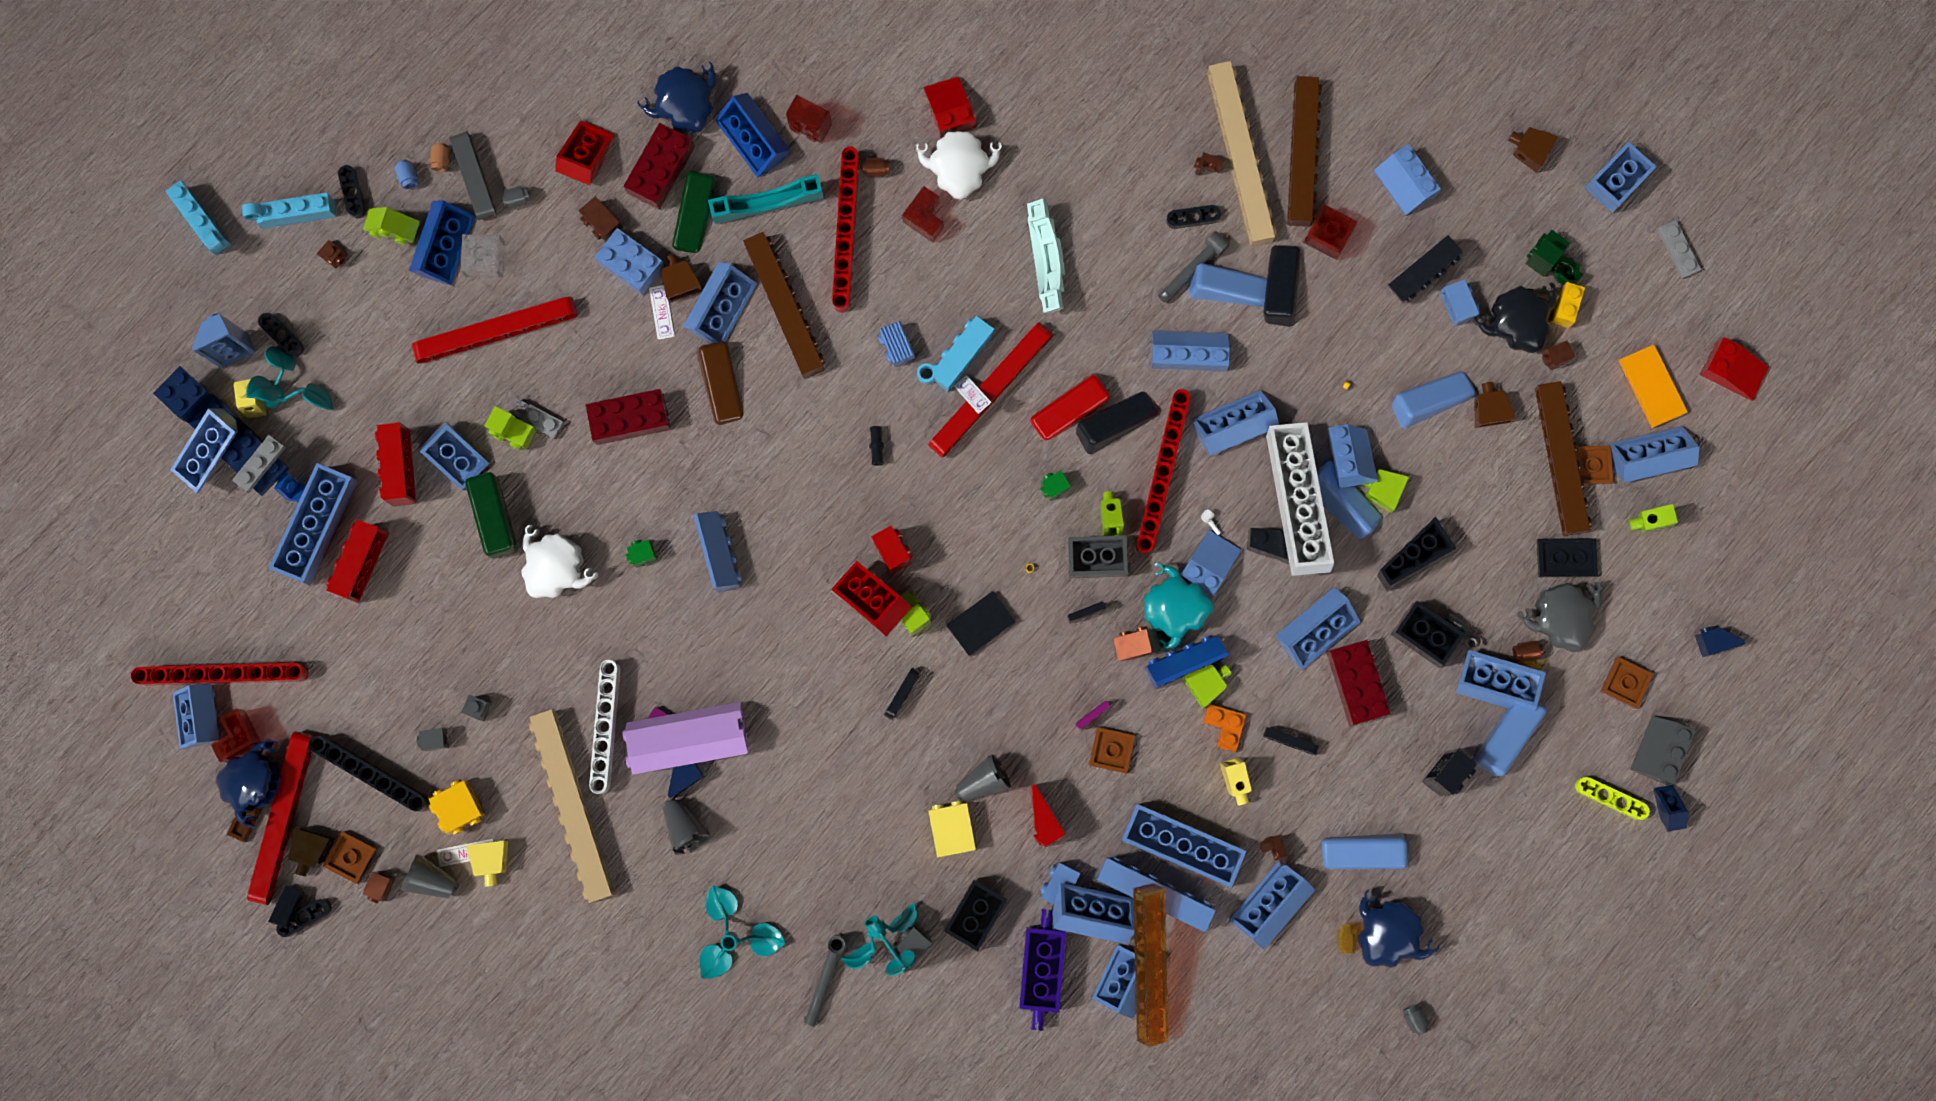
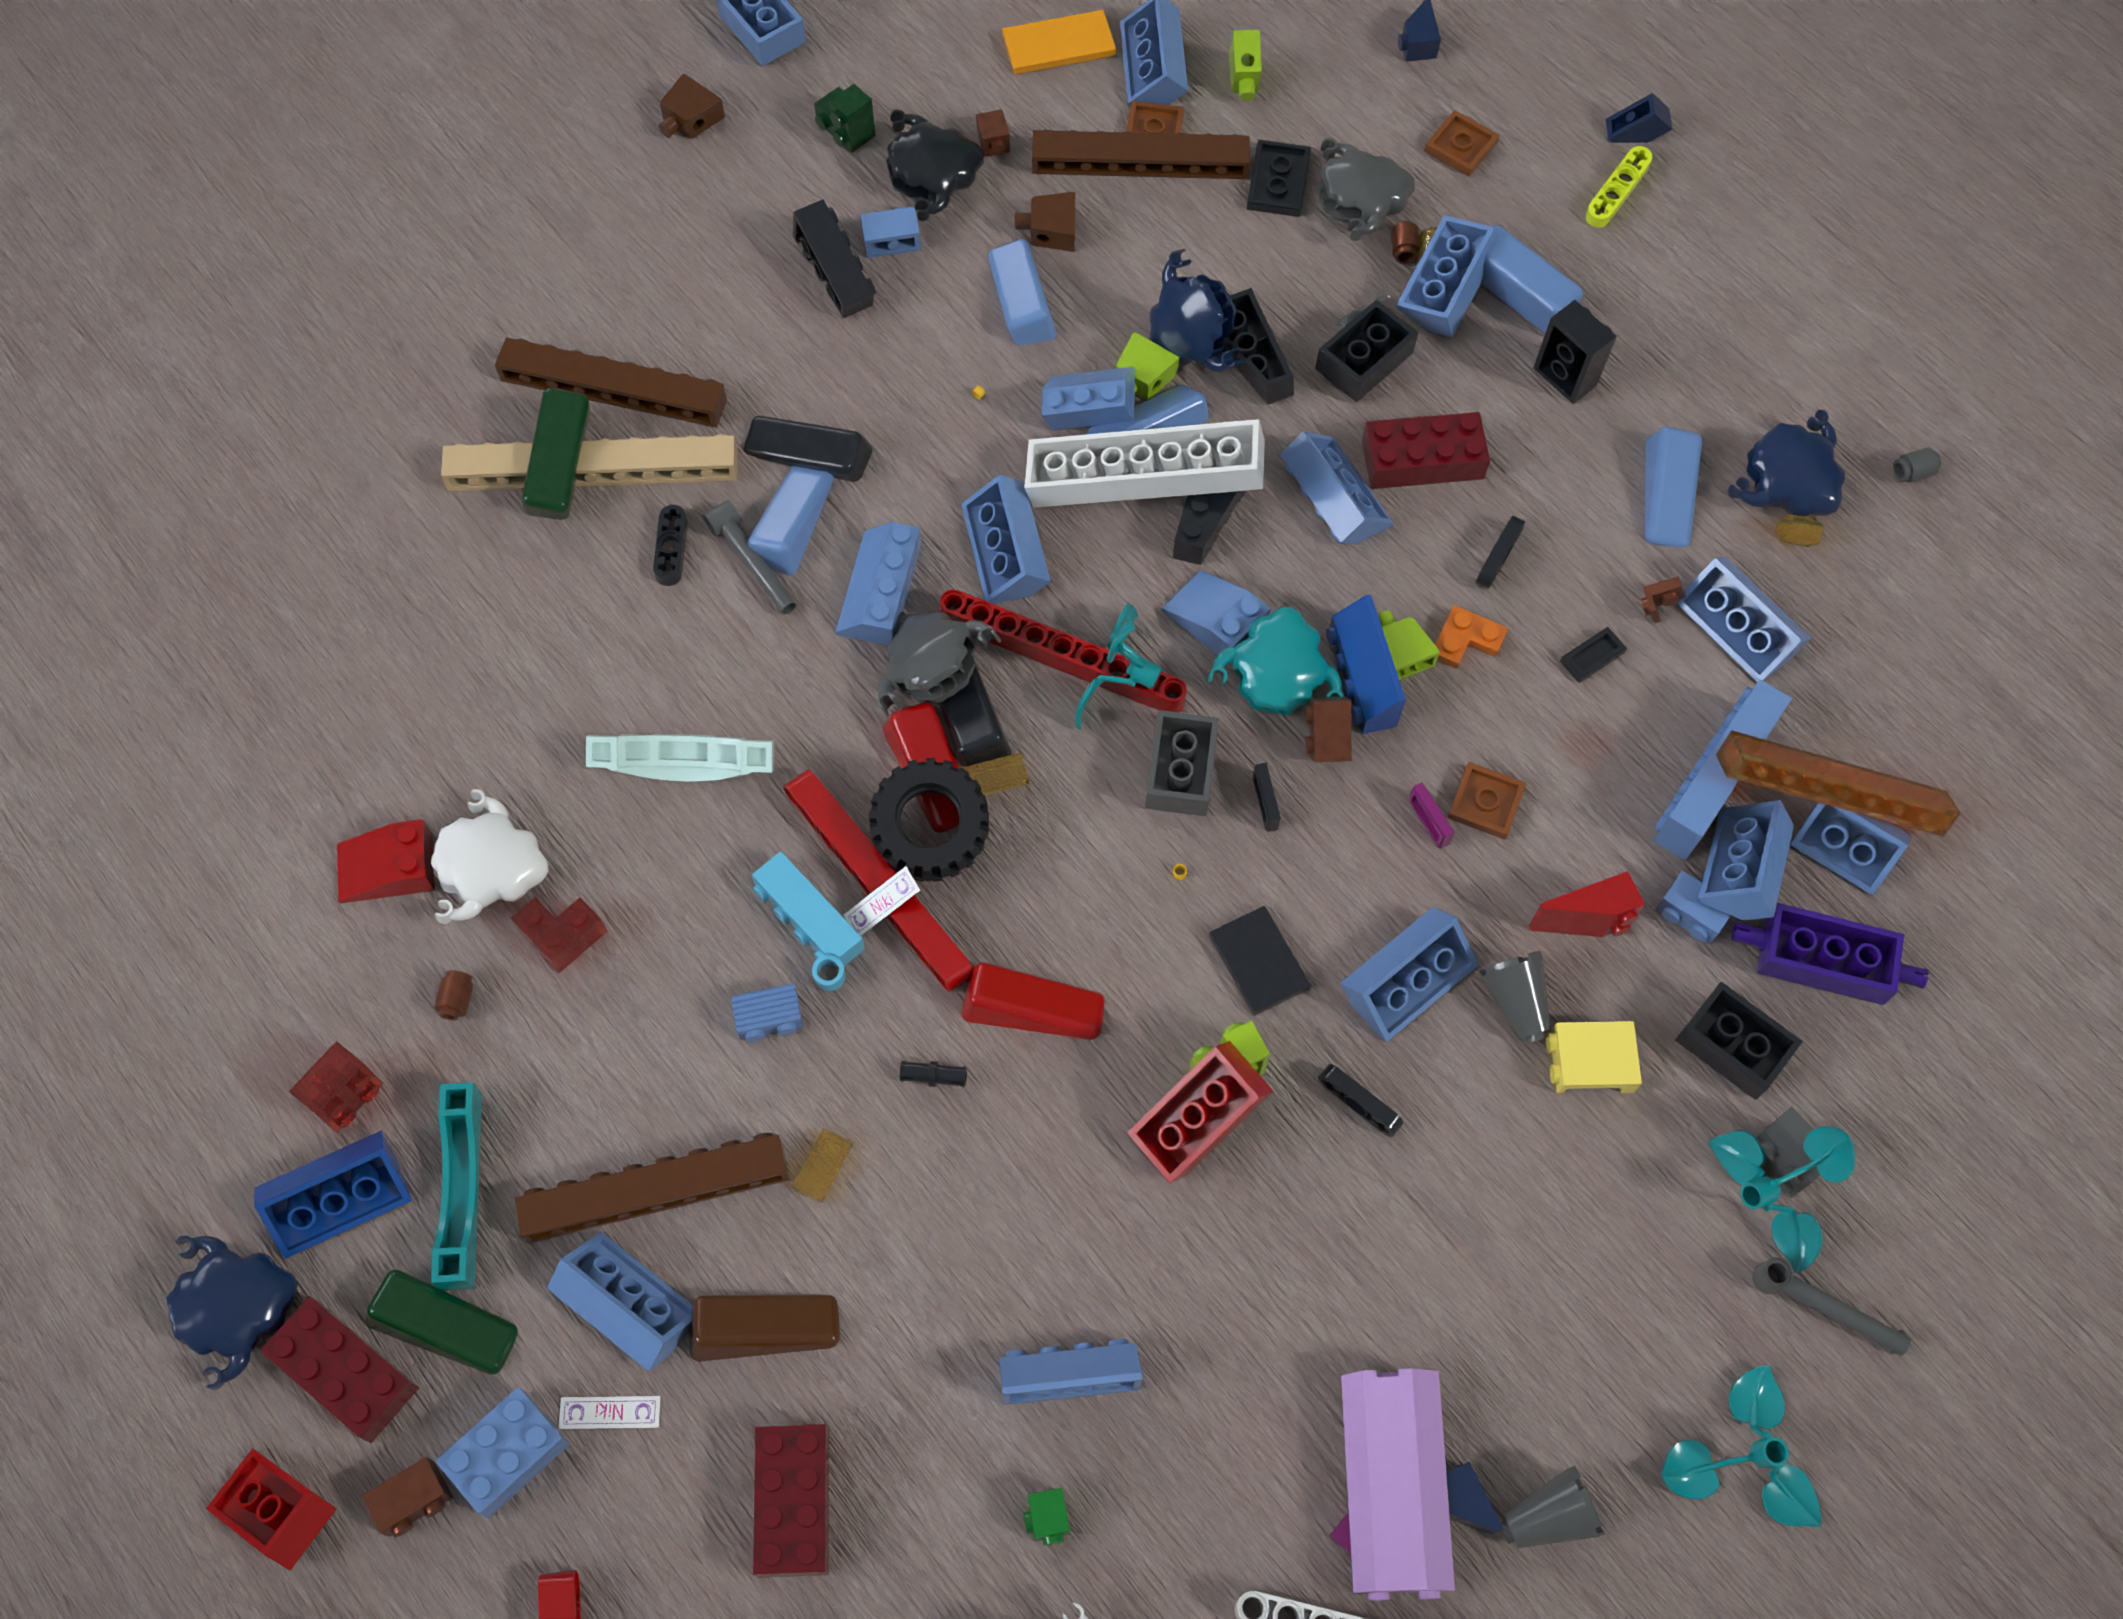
camera: 85 degrees left, 15 degrees down
(679, 279) = (559, 1365): reddish brown torso -> none
(813, 395) = (822, 1165): none -> clear yellow tile
(844, 220) = (536, 1052): red beam -> none
(891, 549) = (1119, 1071): red brick -> none
(930, 495) = (1031, 1003): none -> red piece
(986, 714) = (1410, 973): none -> medium blue slope
(1007, 398) = (918, 780): none -> black tyre
(1054, 485) = (1054, 808): green brick -> none
(1072, 446) = (999, 774): none -> clear yellow tile
(1111, 515) = (1120, 732): lime torso -> none
(1139, 391) = (931, 658): none -> dark grey piece
(1151, 519) = (1139, 669): none -> teal plant
(1183, 845) = (1647, 720): medium blue brick -> none
(1206, 517) = (1144, 606): white hand -> none
(1210, 163) = (592, 506): copper bracket -> none
(1228, 809) = (1593, 654): none -> black tile
(1233, 772) = (1550, 629): light yellow torso -> none
(1239, 130) = (555, 454): none -> dark green piece
(1330, 232) = (745, 365): clear red brick -> none
(1407, 180) = (692, 261): medium blue slope -> none
(1420, 512) = (1193, 317): none -> dark blue piece
(1566, 271) = (883, 100): dark green hair -> none
(1567, 305) = (925, 102): yellow brick -> none
(1663, 750) = (1561, 116): dark grey slope -> none

